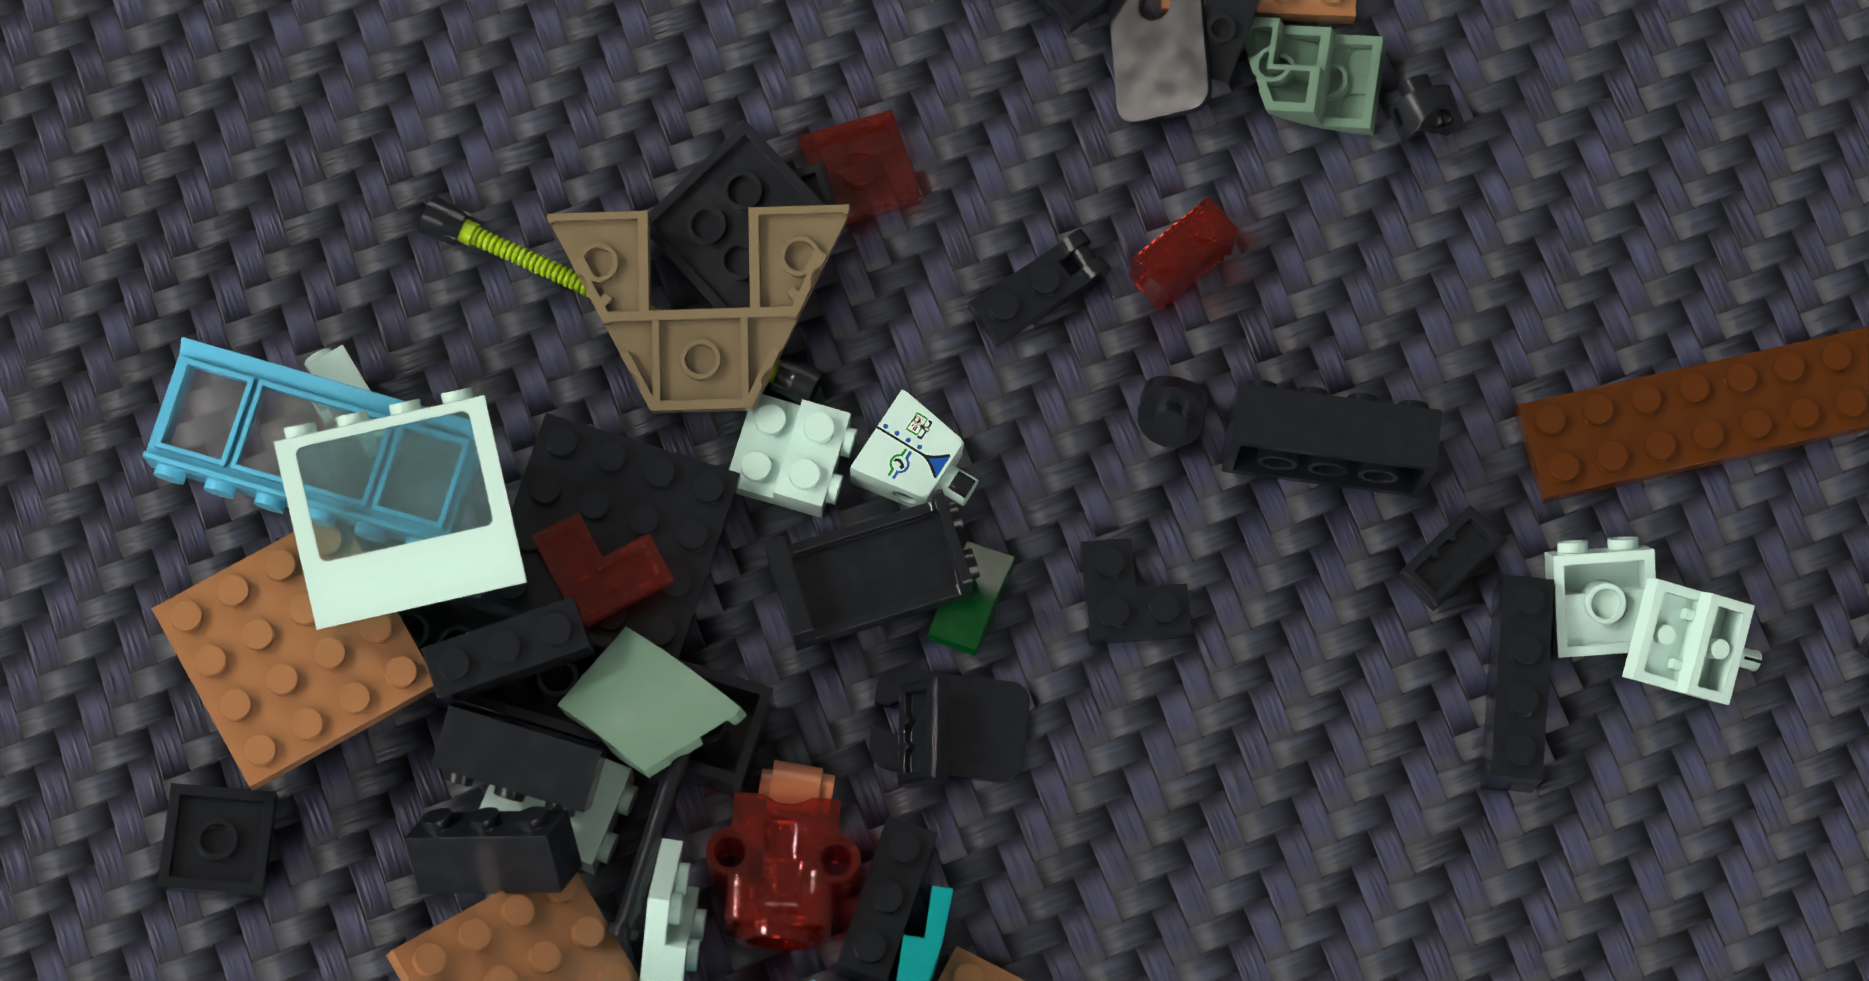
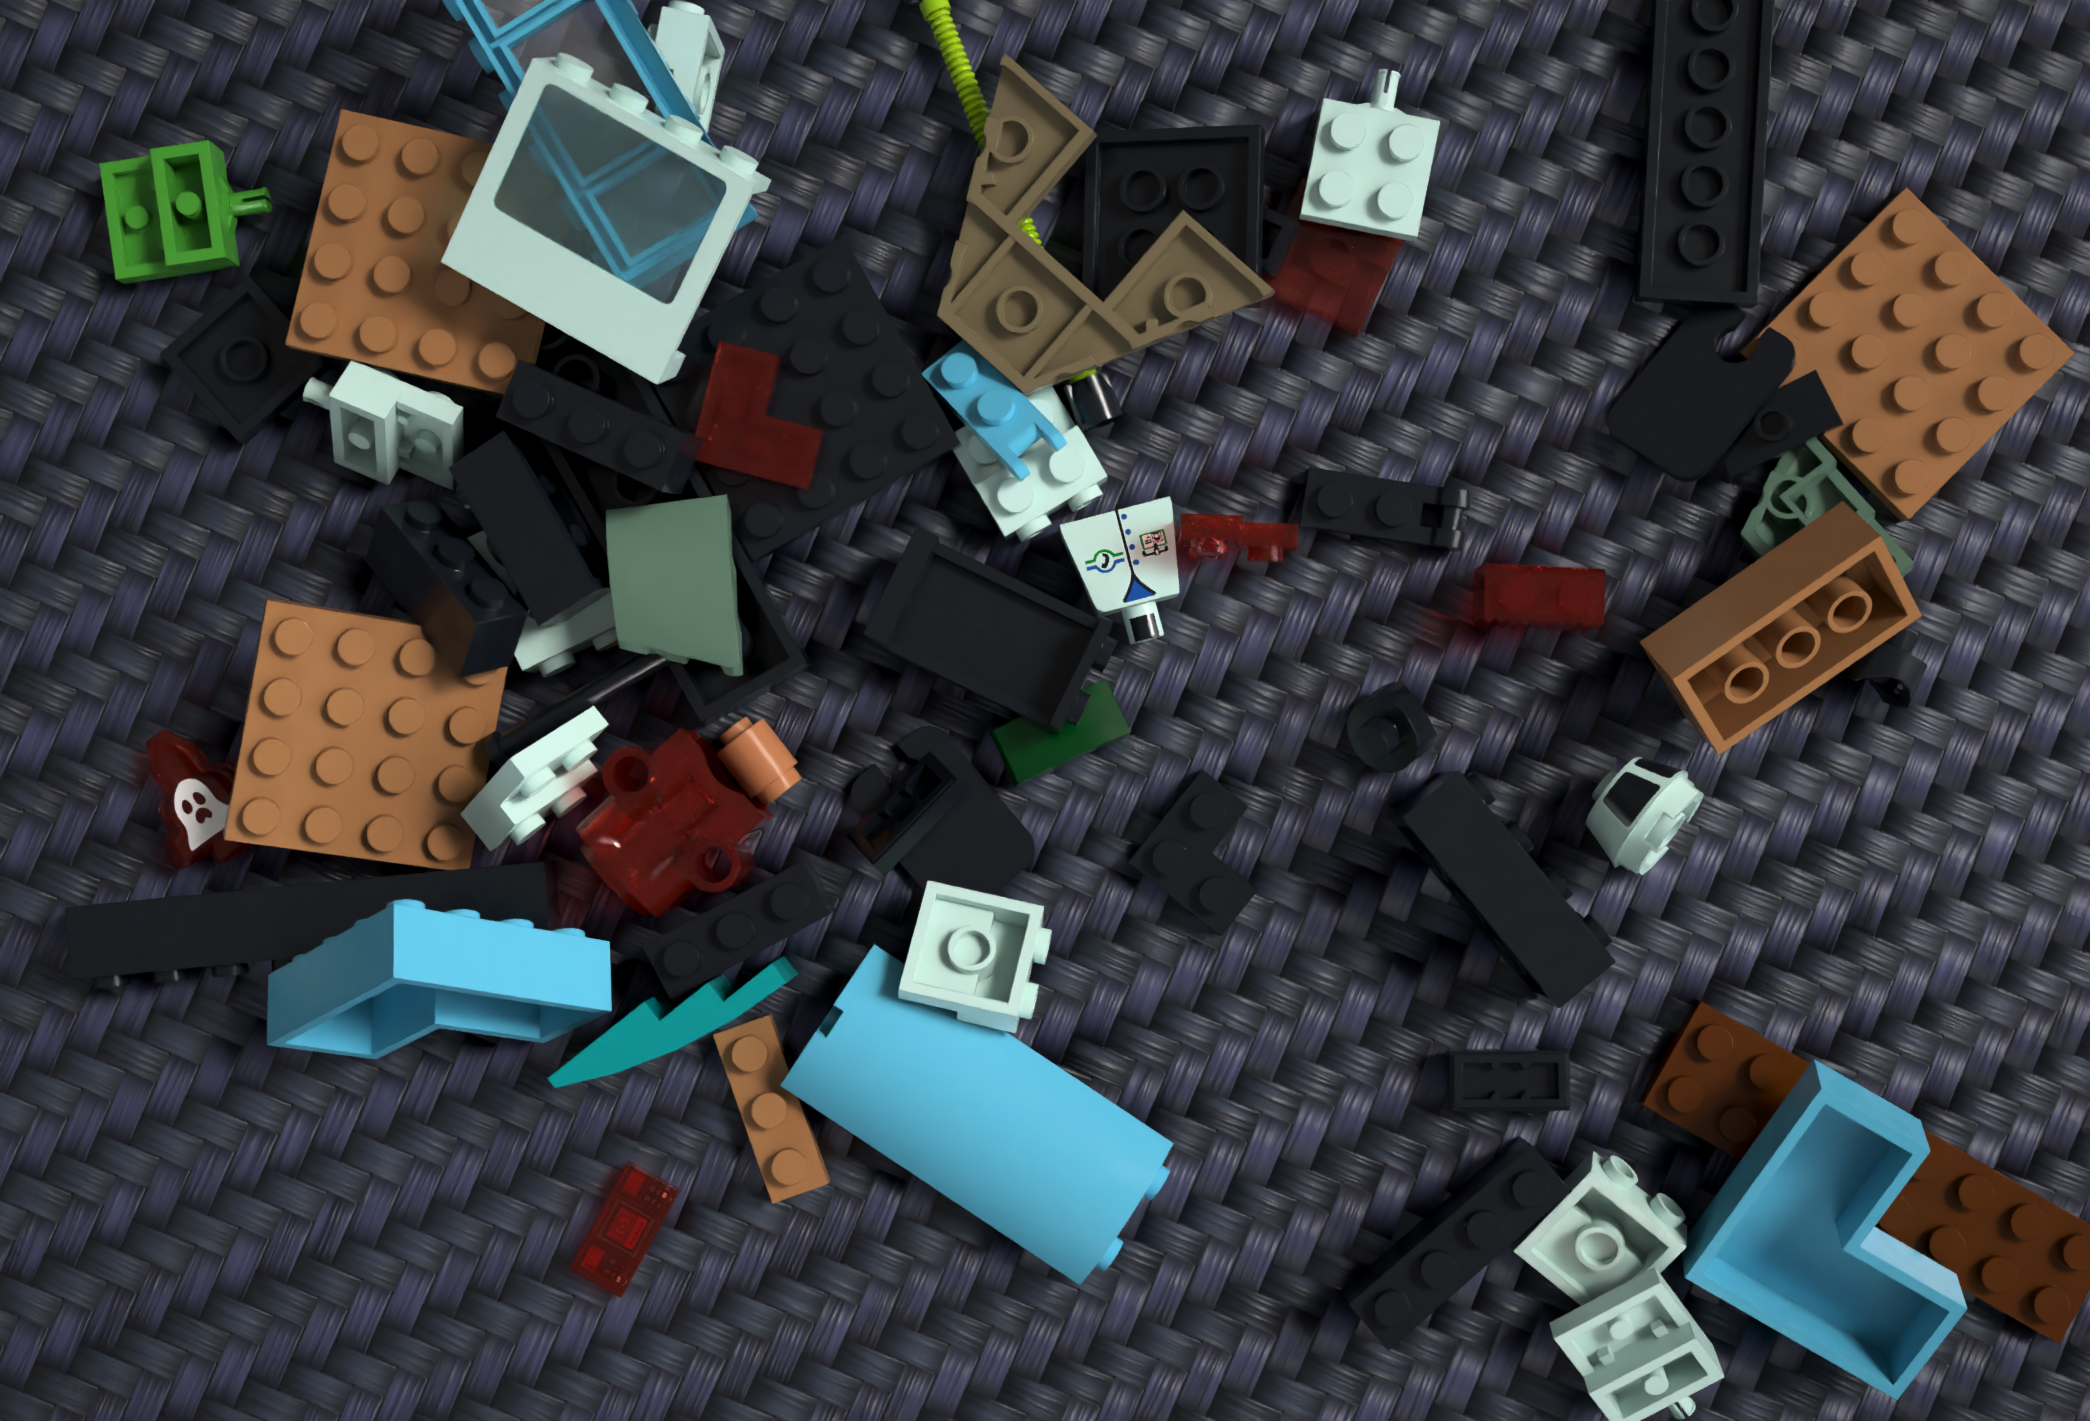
camera: 55 degrees right, 15 degrees up
(82, 789) = (174, 212): none -> bright green plate
(361, 787) = (390, 425): none -> light aqua plate
(739, 436) = (990, 406): none -> medium azure hinge
(831, 92) = (1370, 165): none -> light aqua plate
(952, 385) = (1212, 535): none -> clear red plate
(1053, 777) = (975, 956): none -> light aqua plate
(1151, 880) = (981, 1120): none -> medium azure cylinder
(1344, 137) = (1782, 627): none -> medium nougat brick
(1370, 321) = (1641, 812): none -> light aqua cone
(1711, 487) = (1800, 1240): none -> medium azure piece

